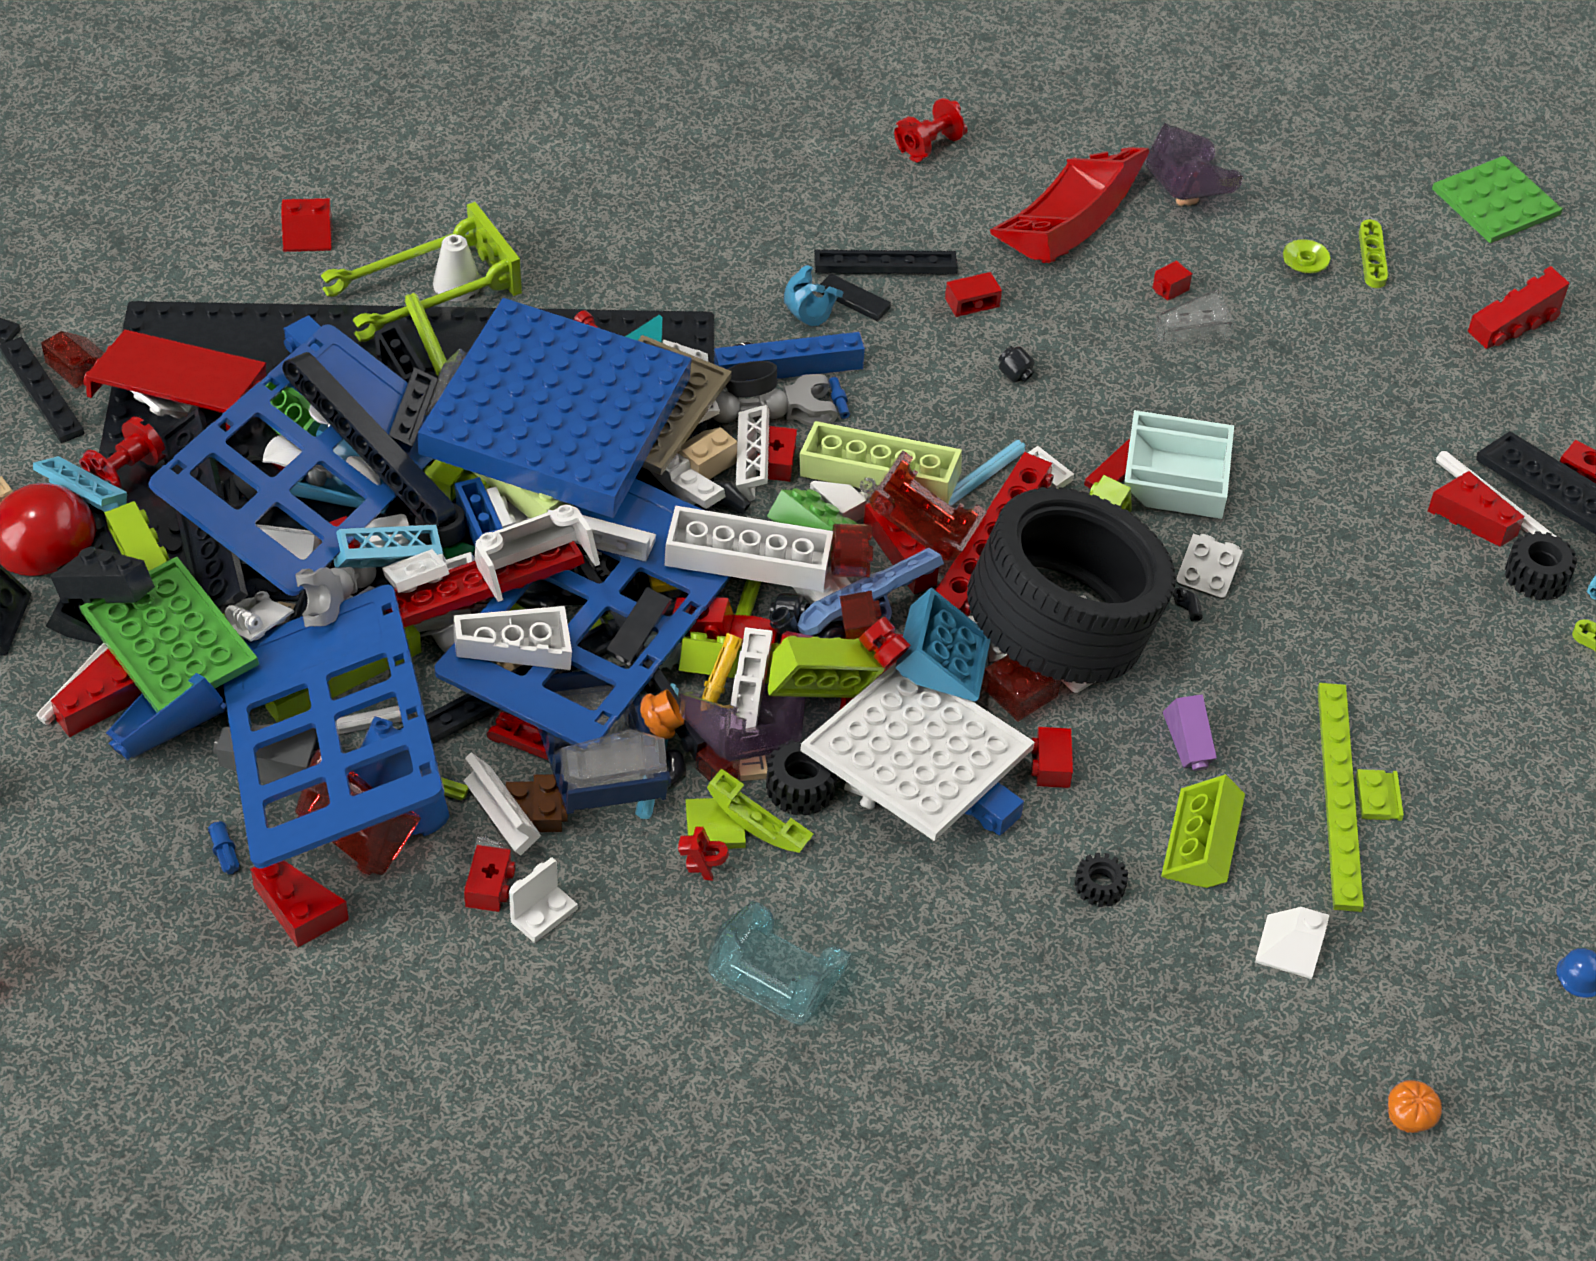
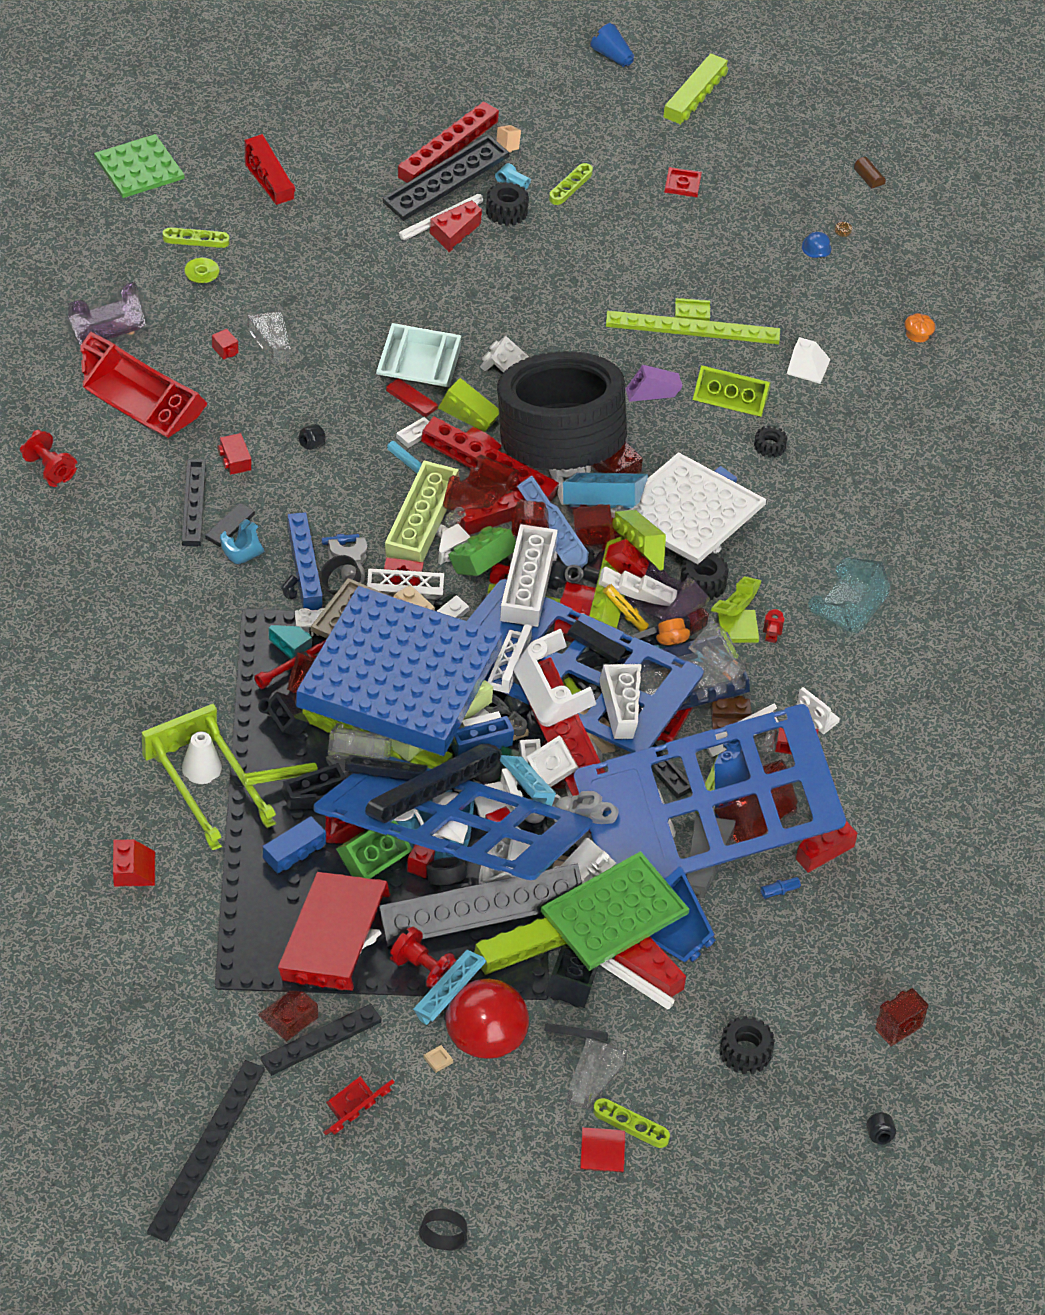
camera: 90 degrees left, 0 degrees up
(103, 575) = (572, 942): black wedge -> none
(891, 649) = (627, 500): red wheel -> none
(1053, 757) = (670, 447): red brick -> none

